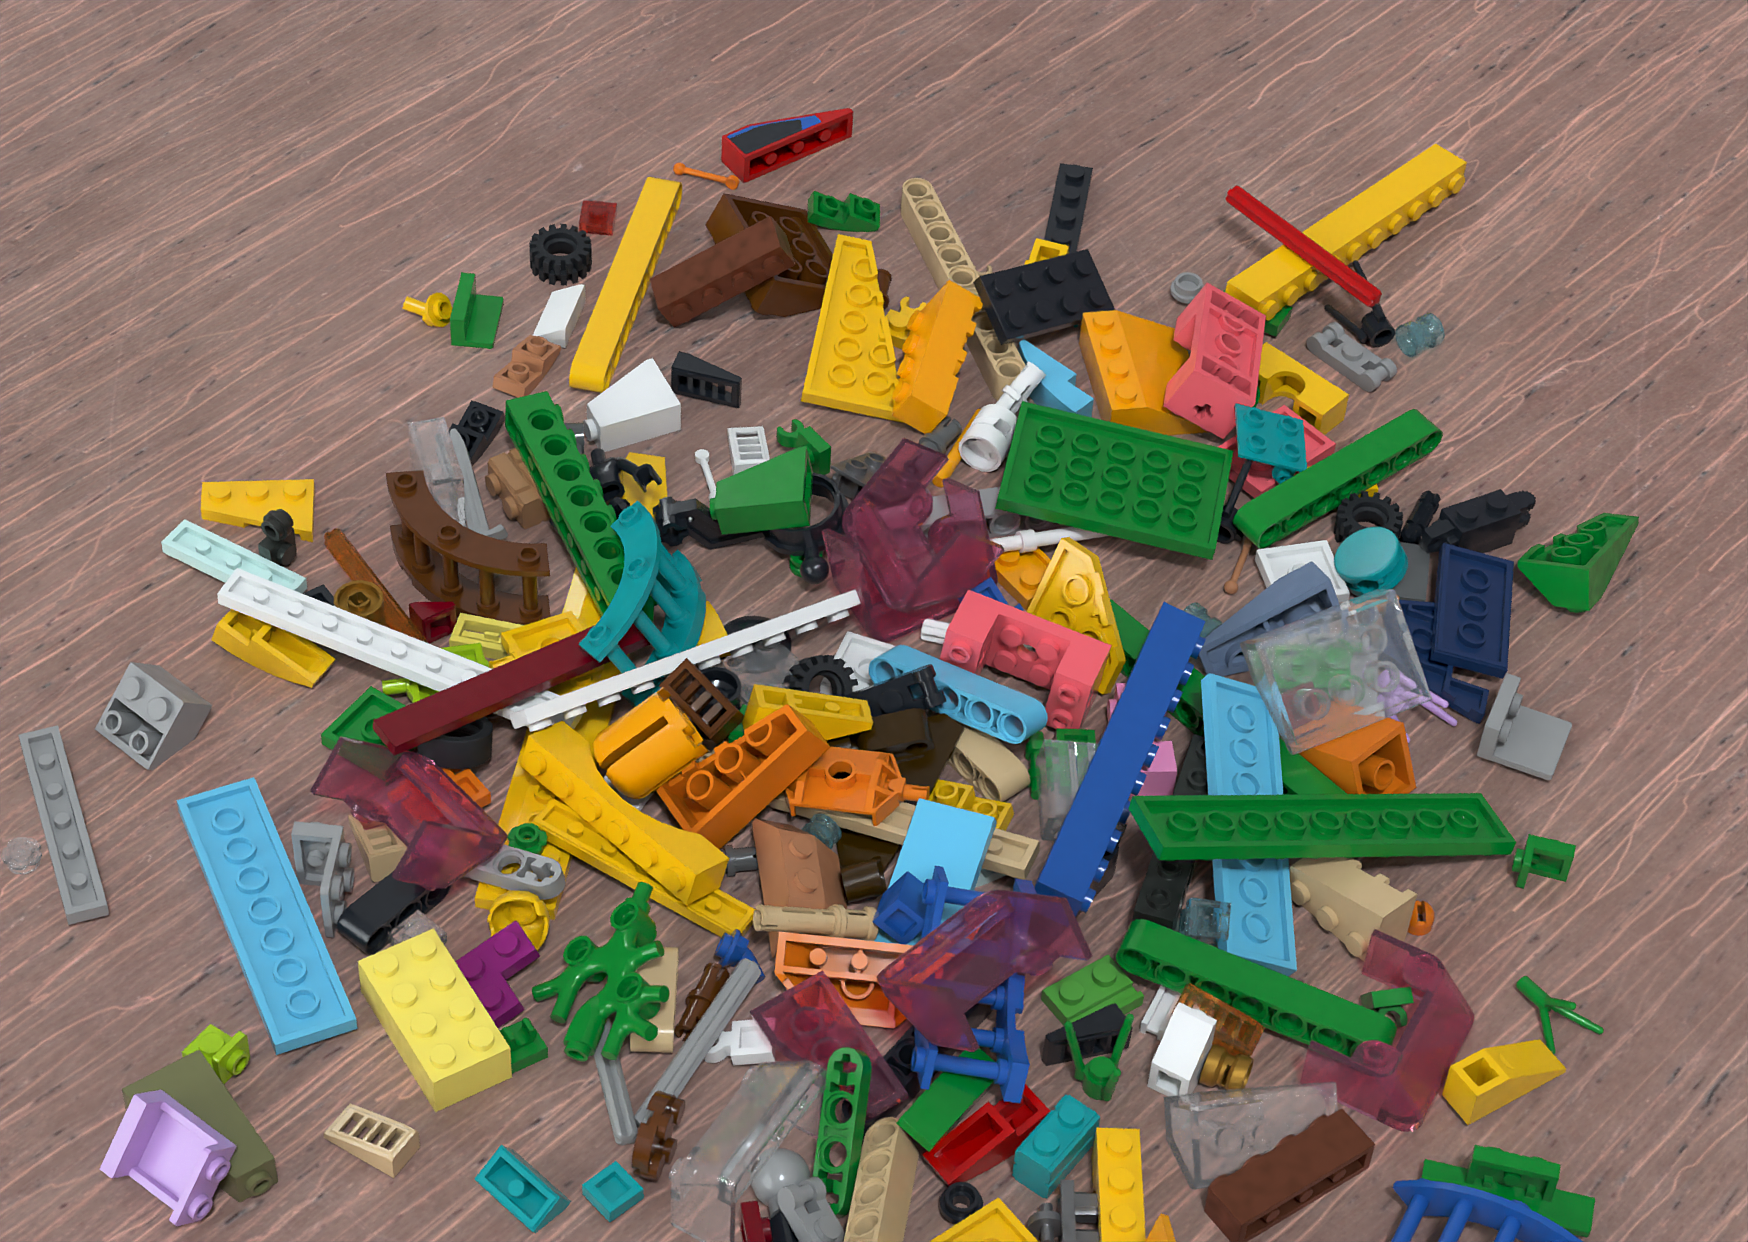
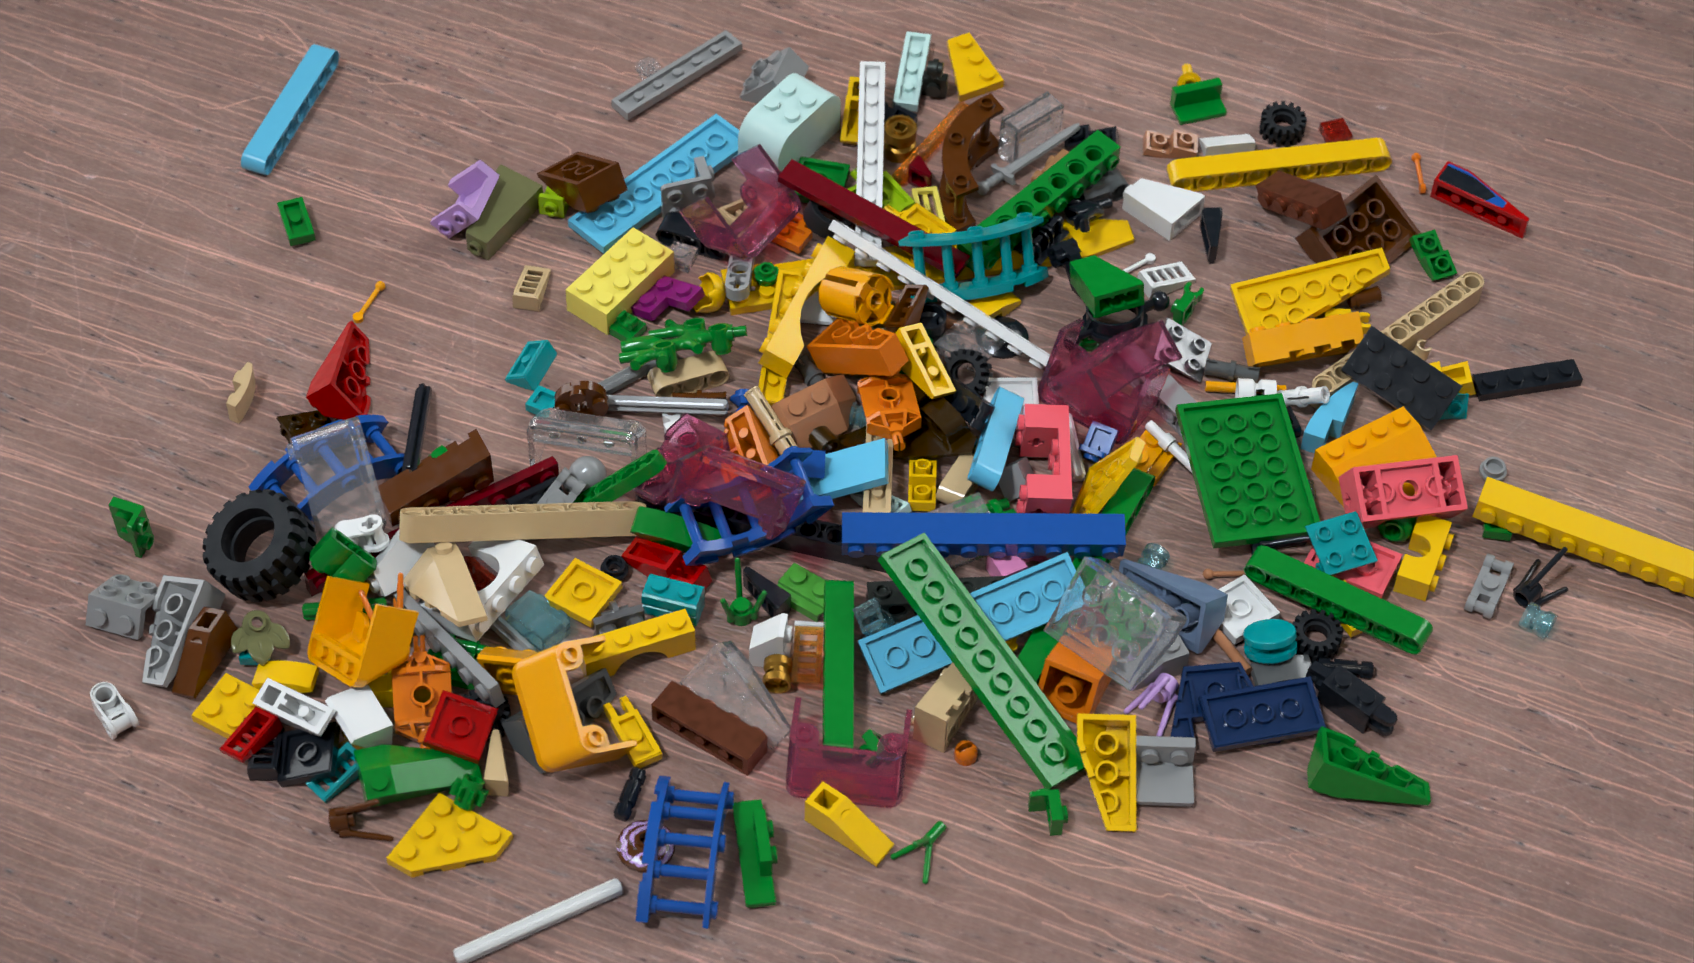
camera: 70 degrees right, 5 degrees up
(221, 992) = (585, 181): none -> reddish brown slope
(271, 720) = (791, 121): none -> light aqua brick
(1304, 246) = (1555, 511): red axle -> none
(1501, 772) = (1109, 759): none -> yellow wedge

